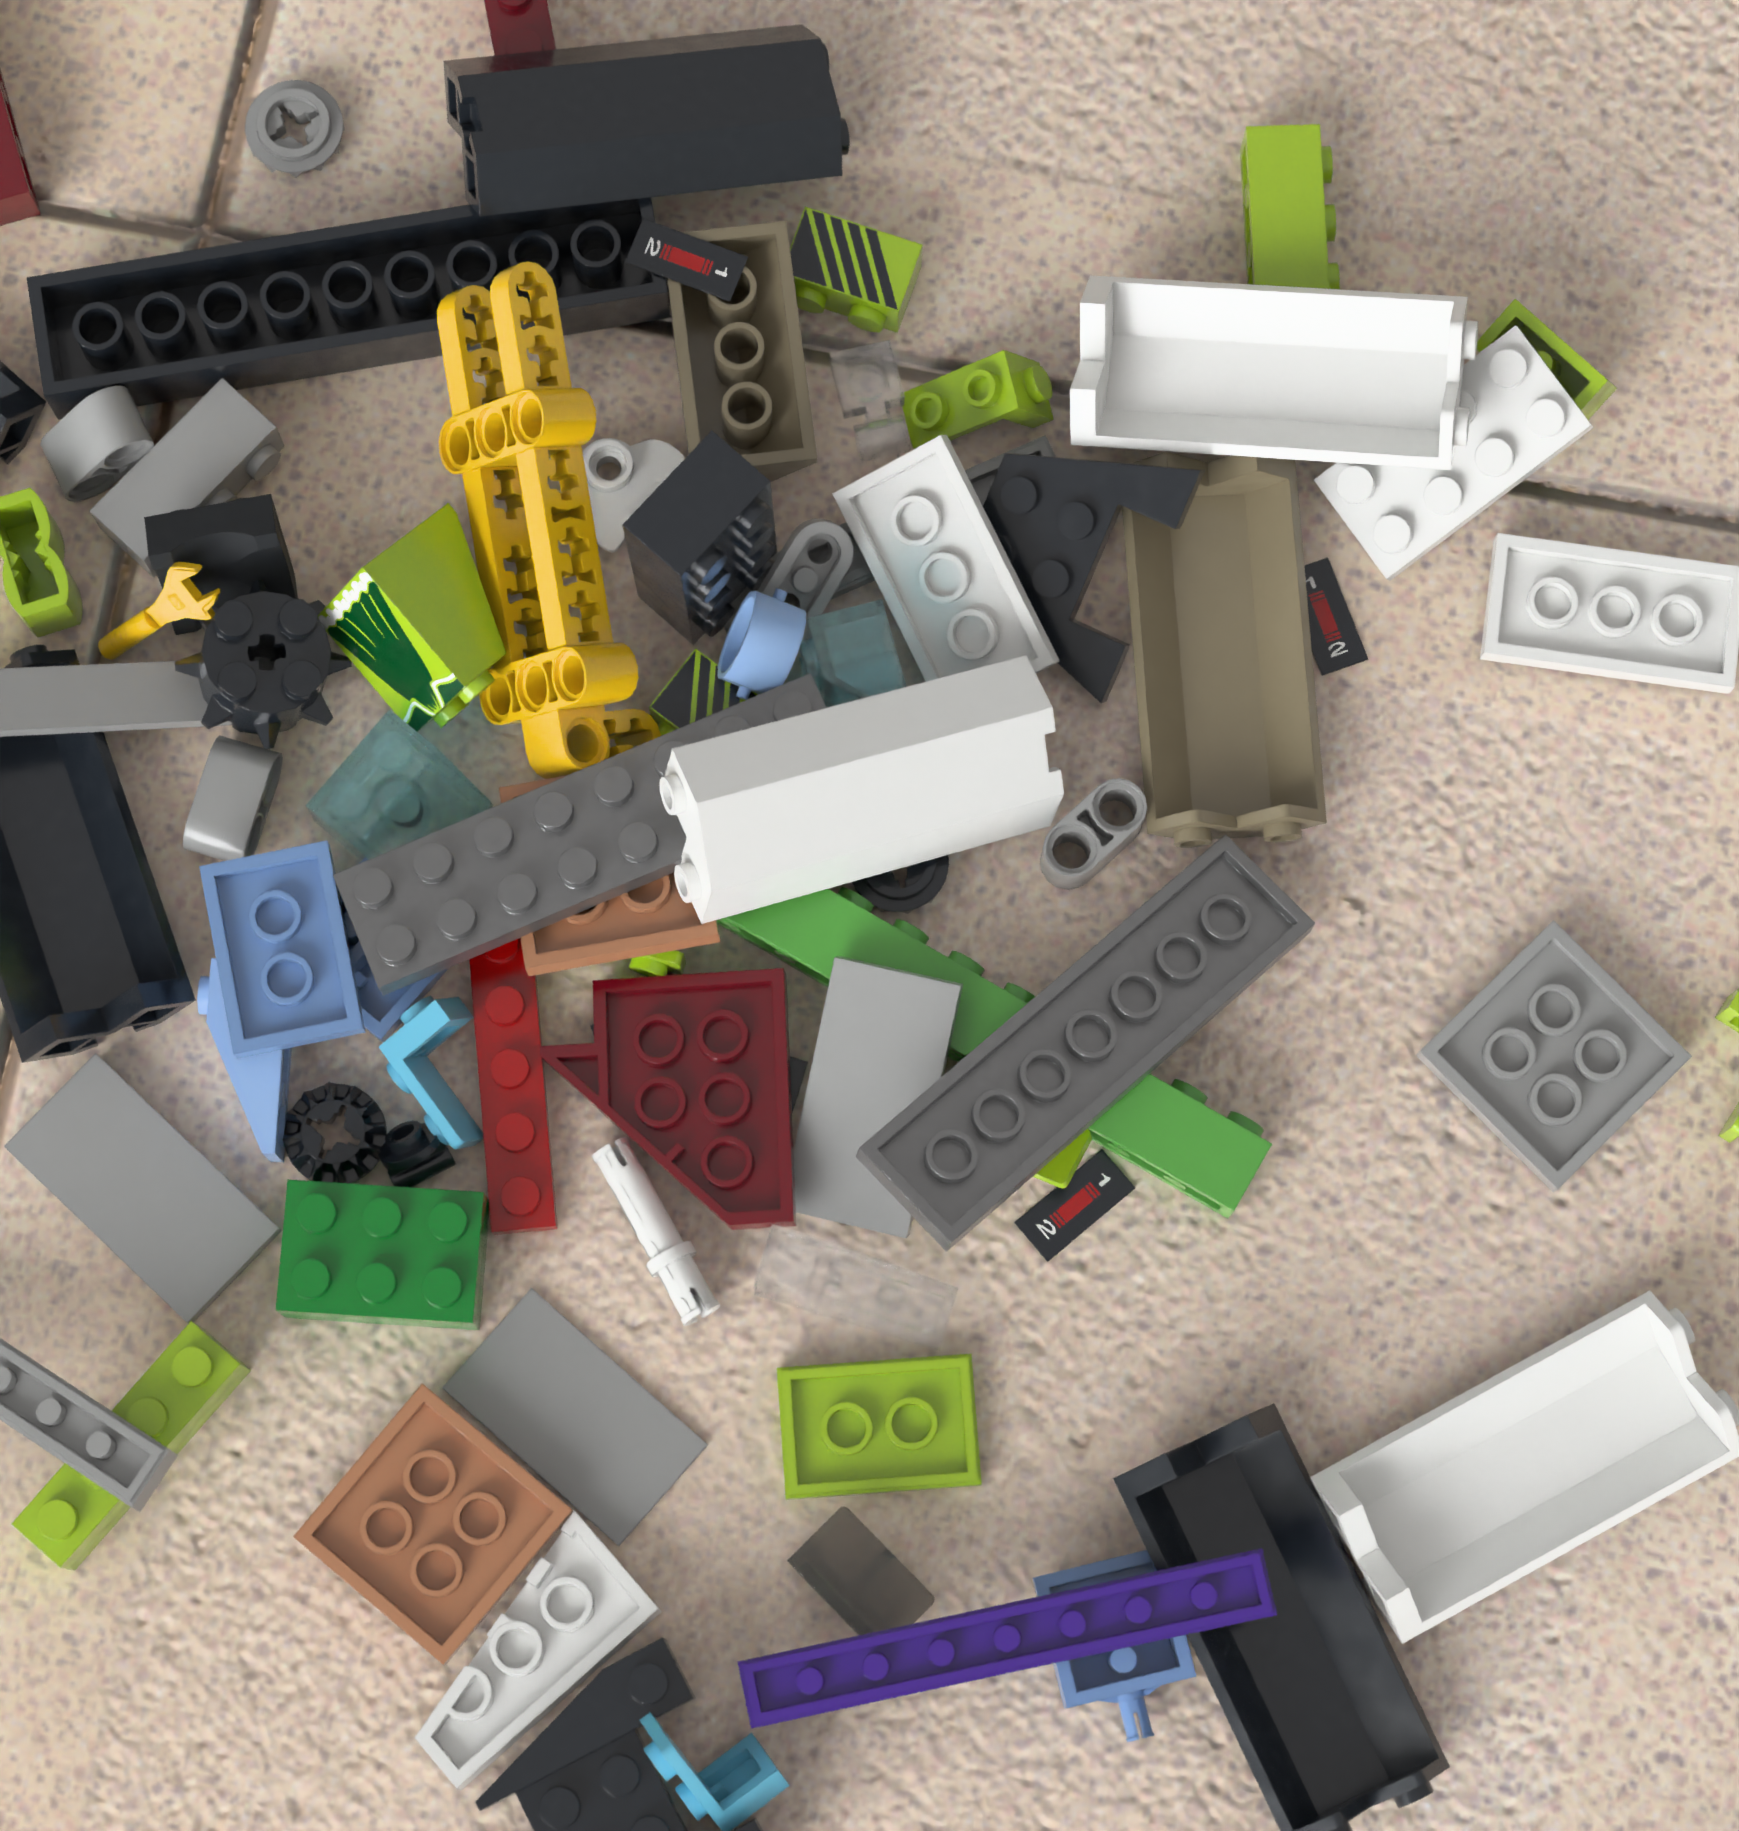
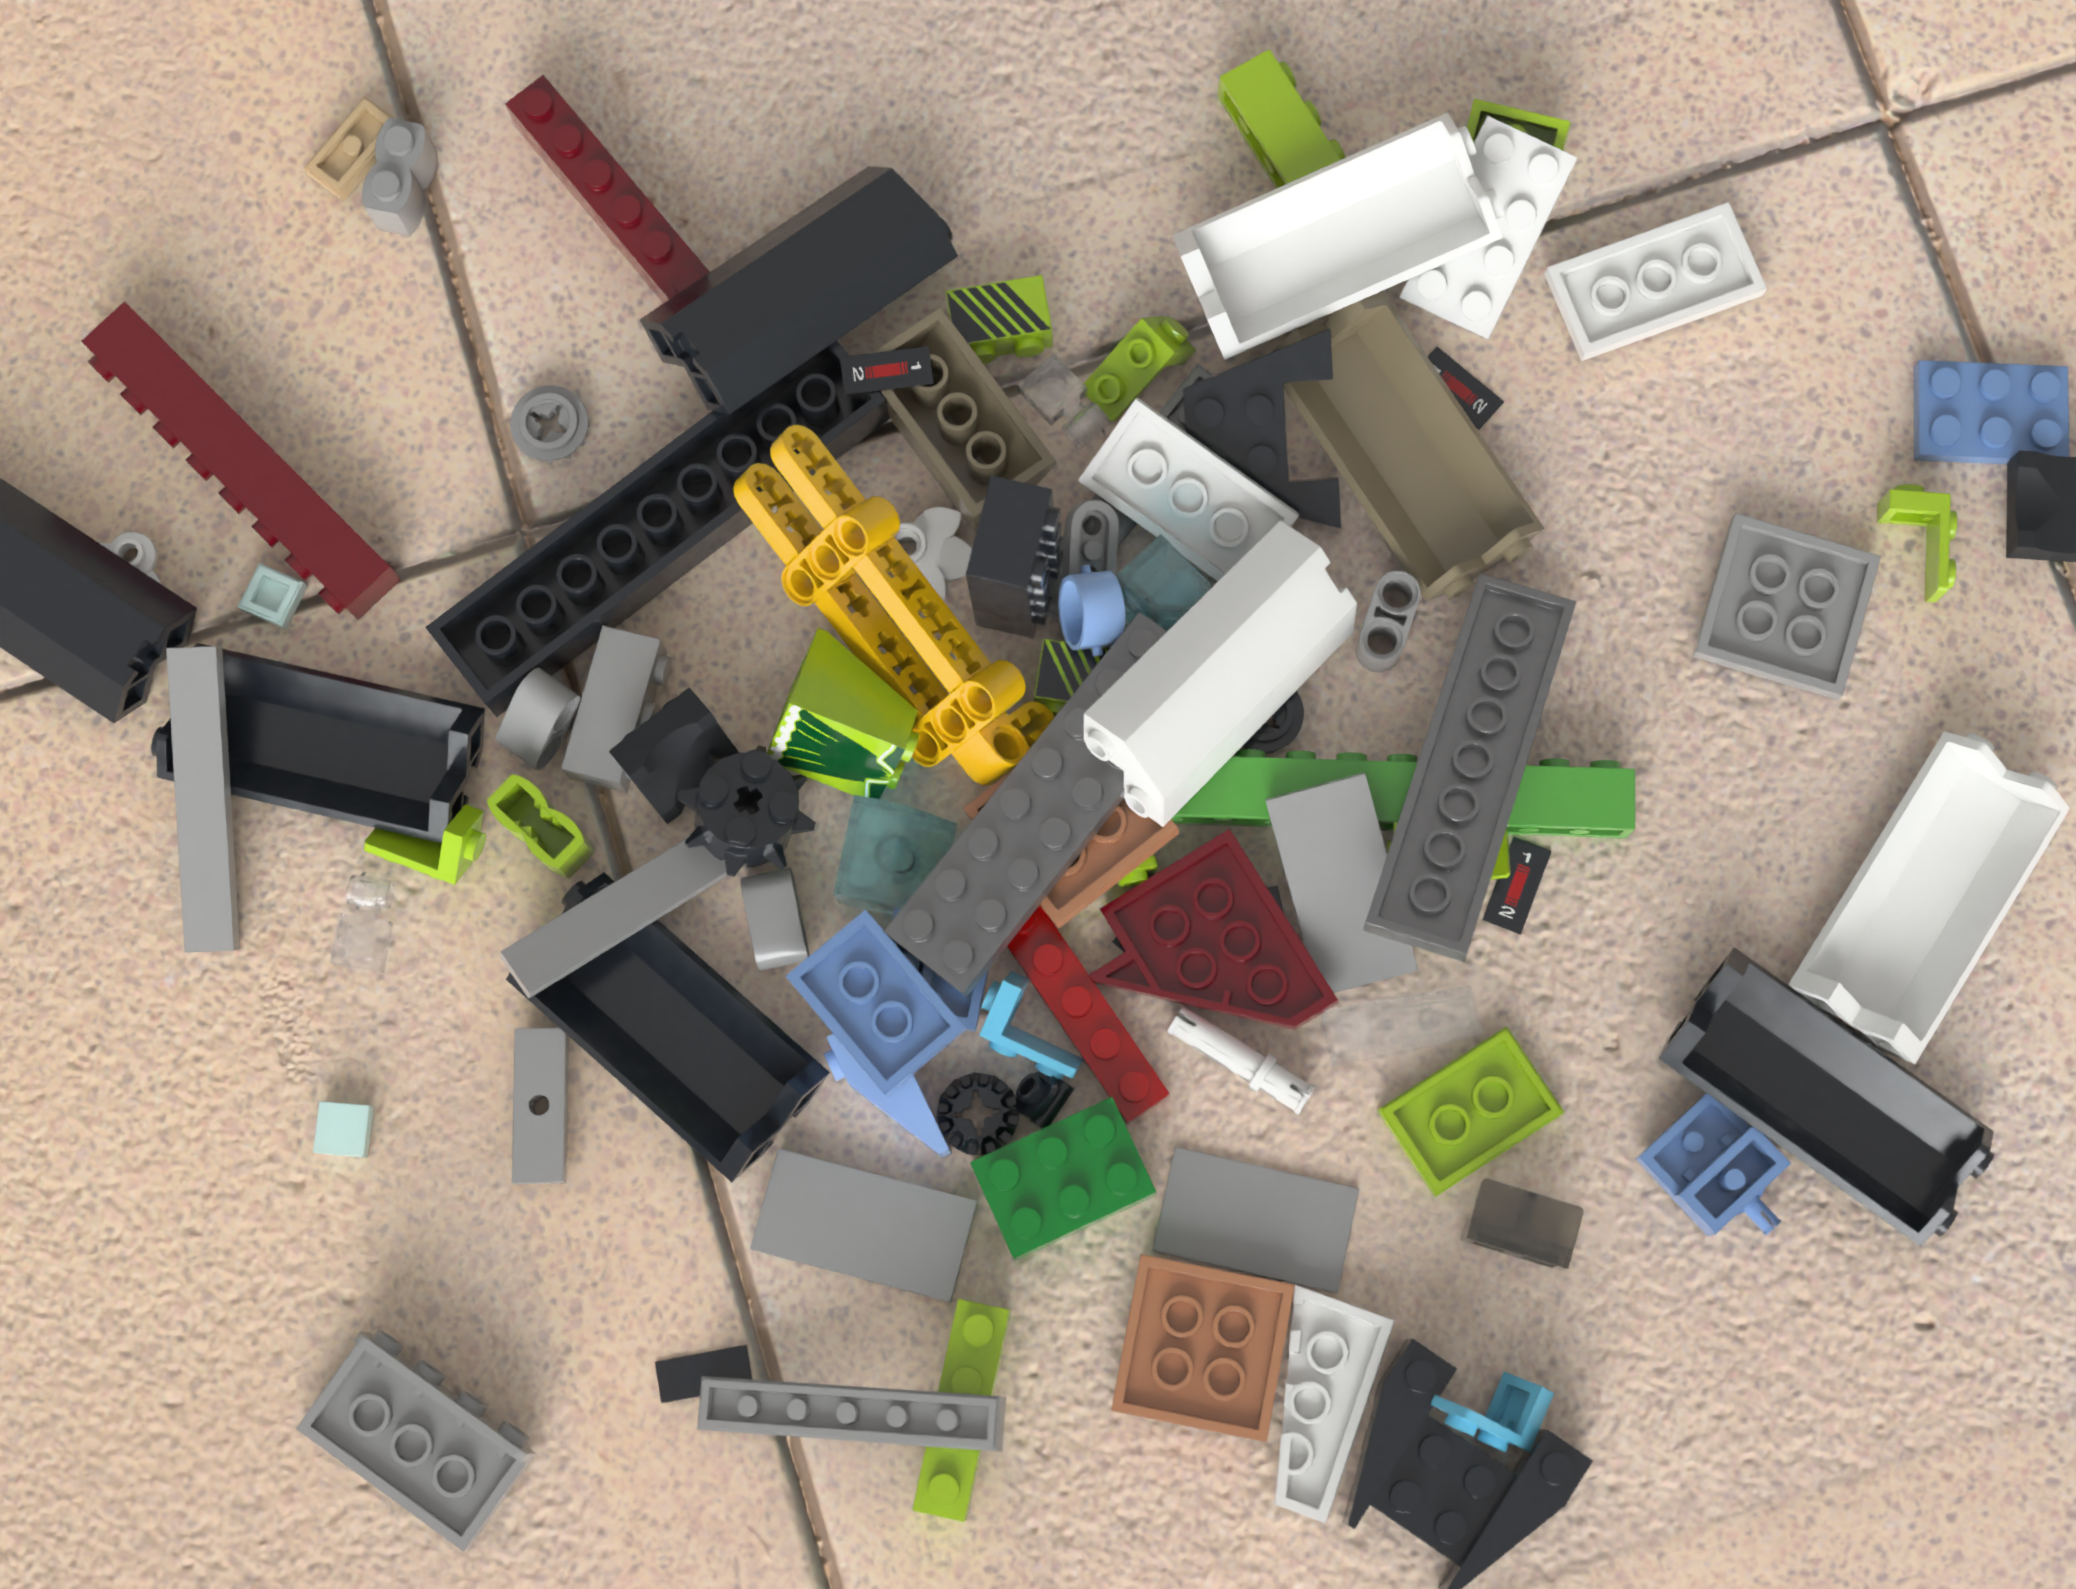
camera: 20 degrees left, 0 degrees up
(176, 601) = (662, 798): yellow piece -> none
(1006, 1638) = (1649, 1208): dark purple tile -> none

